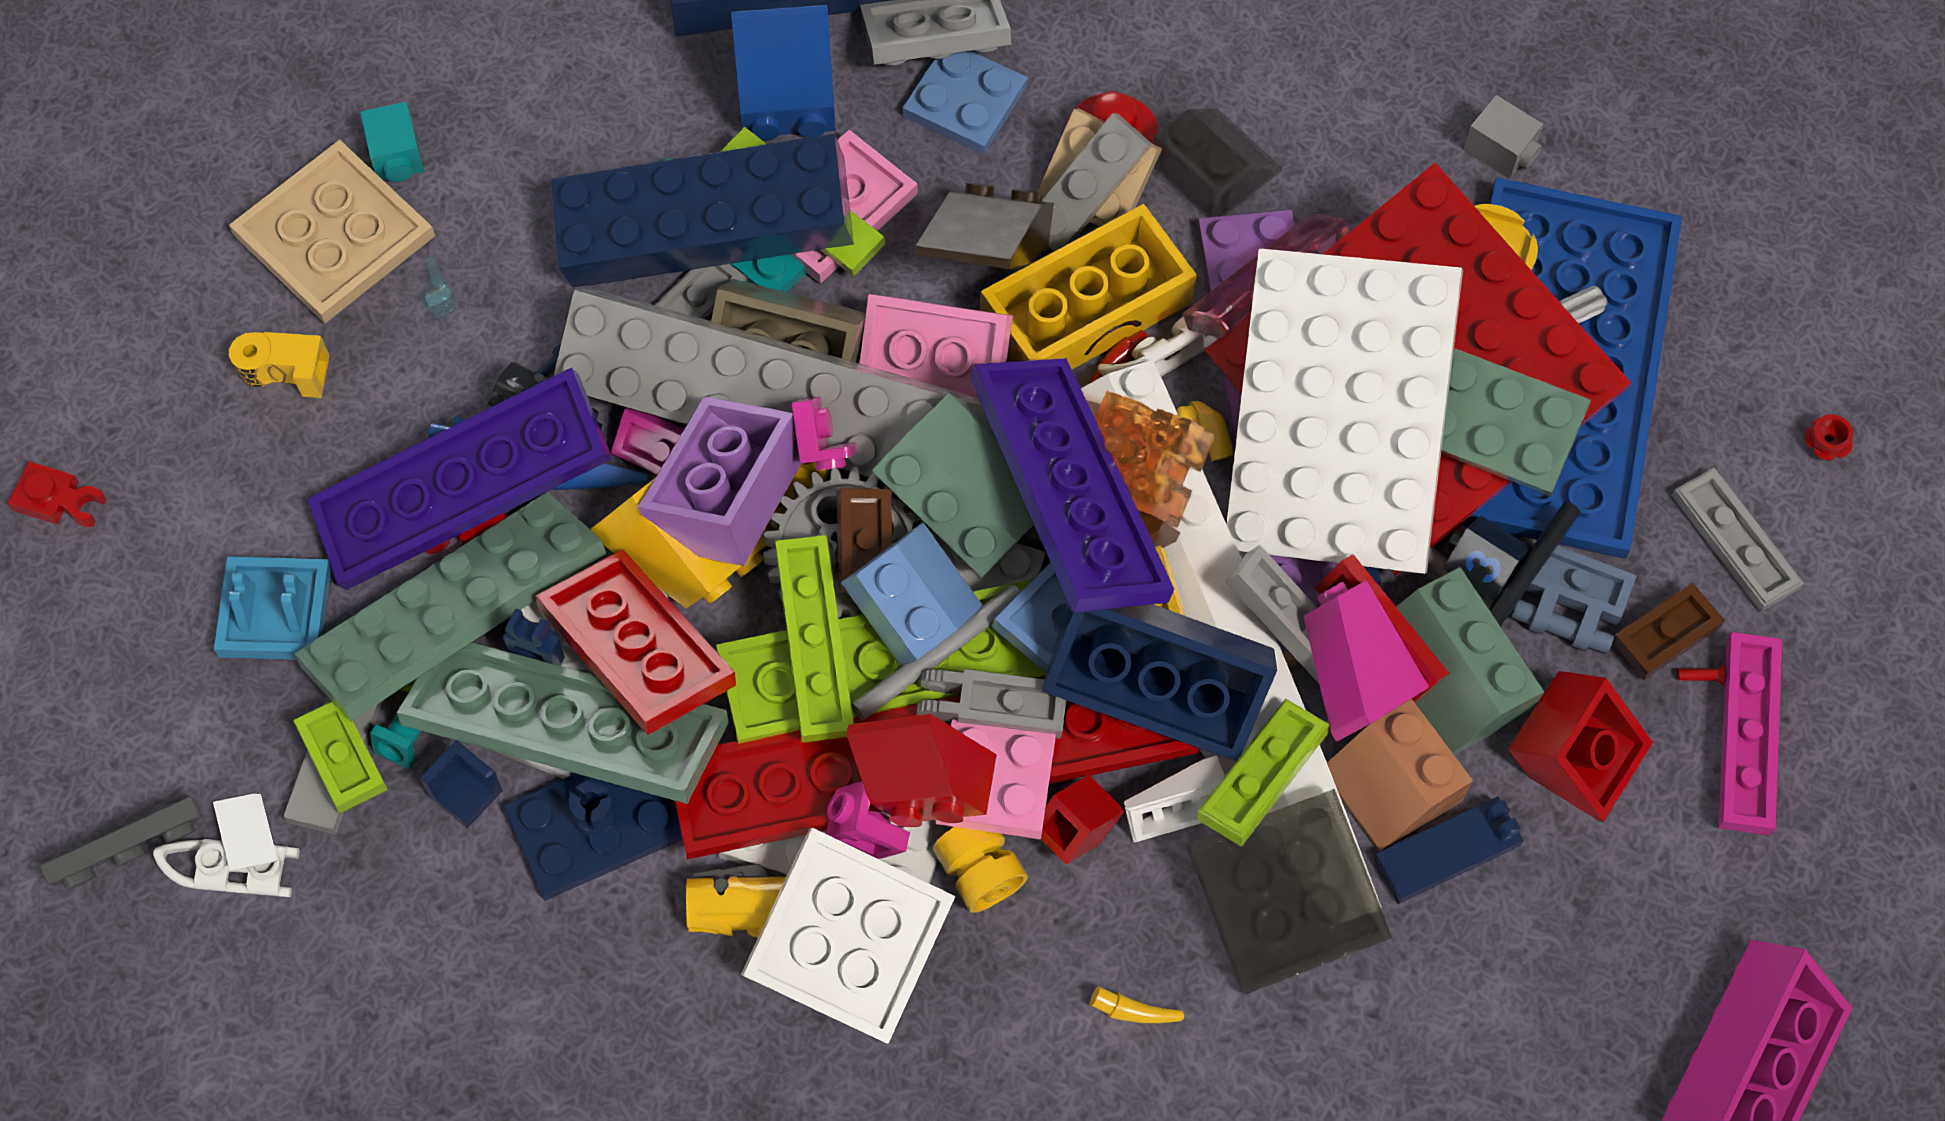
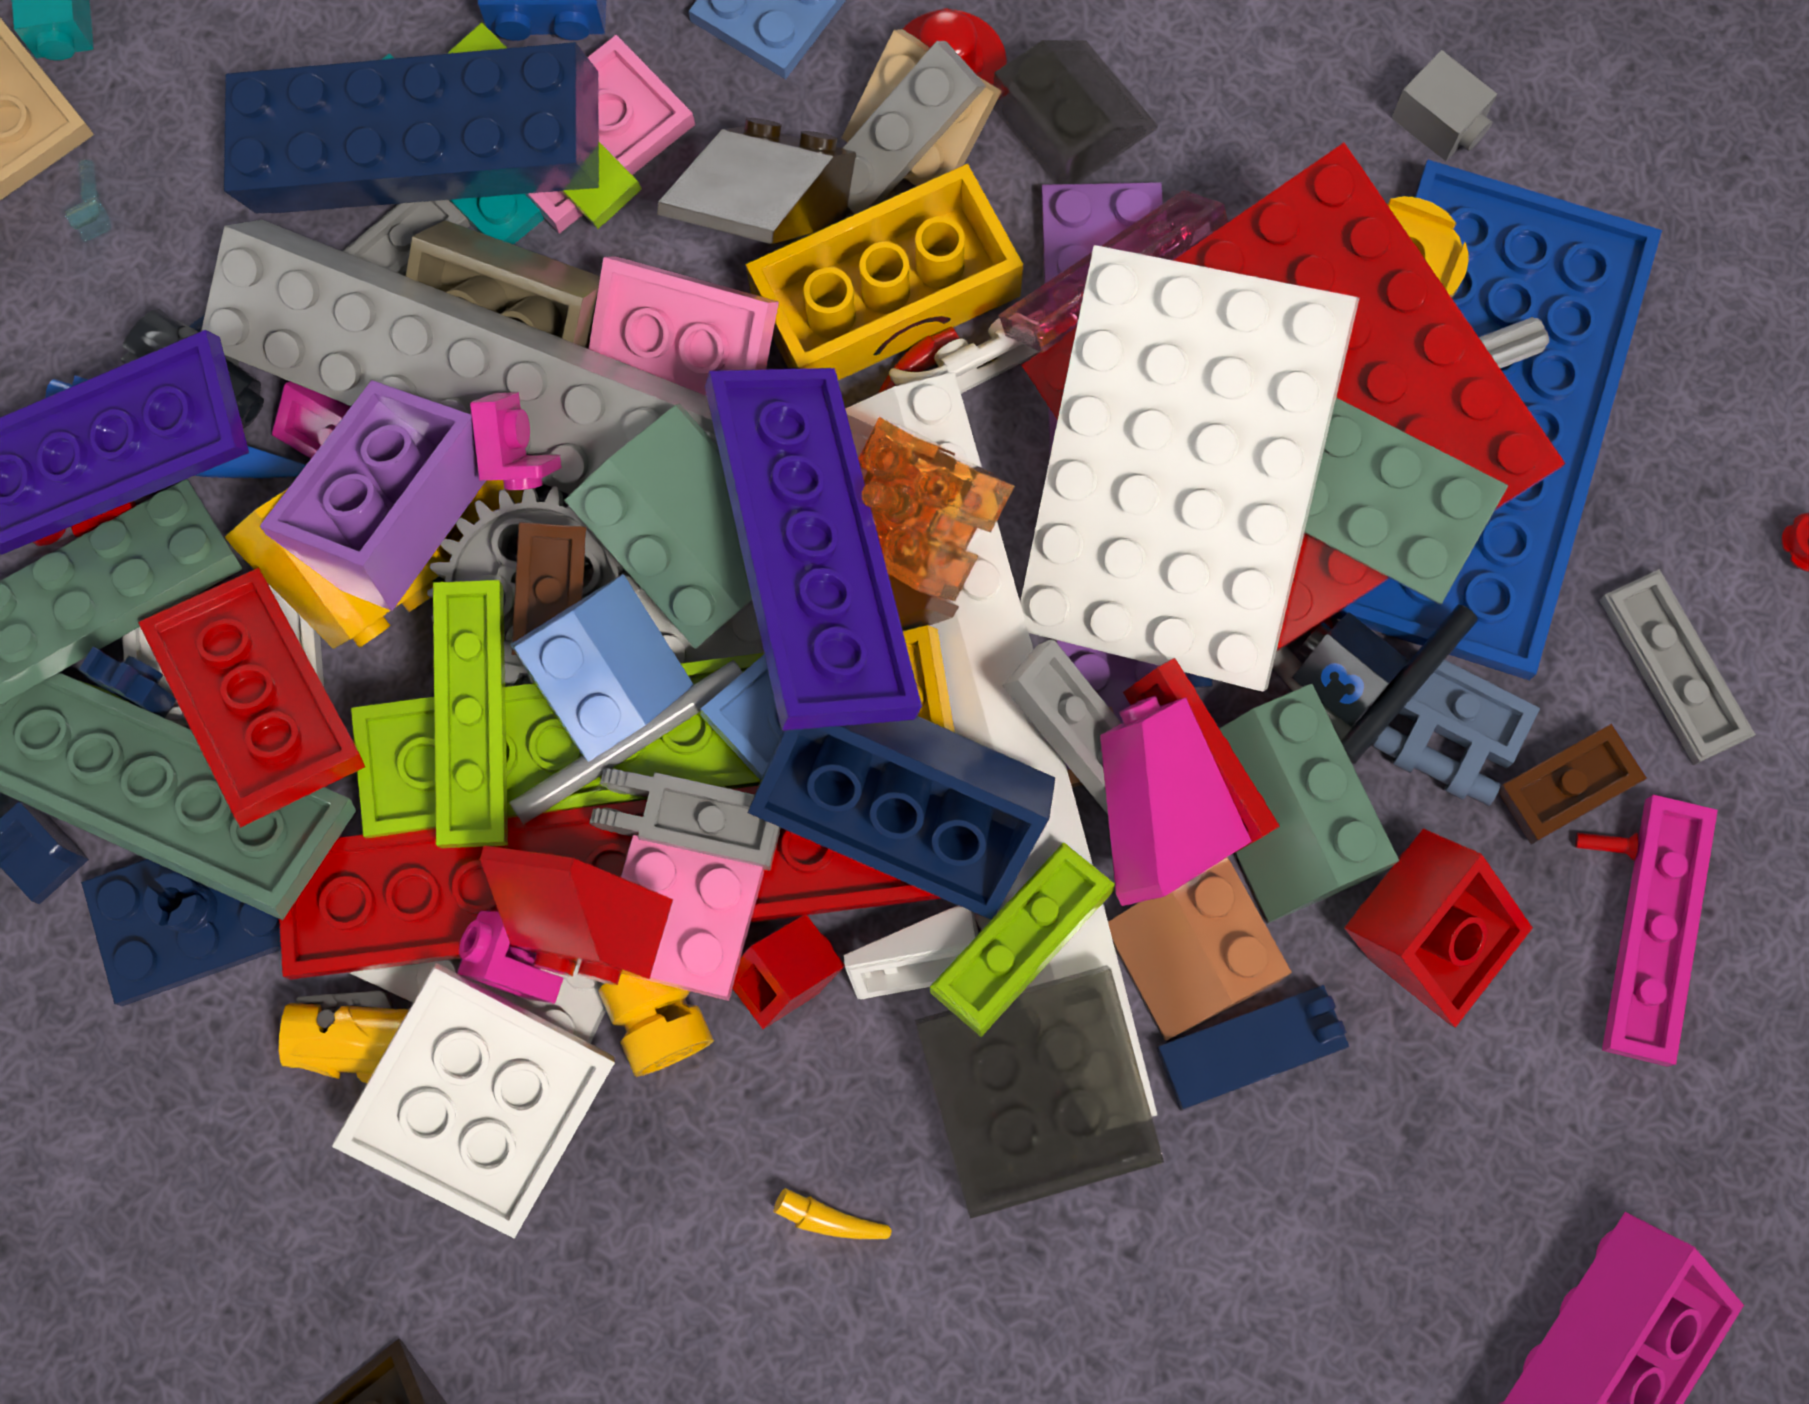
camera: 10 degrees right, 10 degrees up
(1213, 422) = (1021, 458): yellow arm -> none

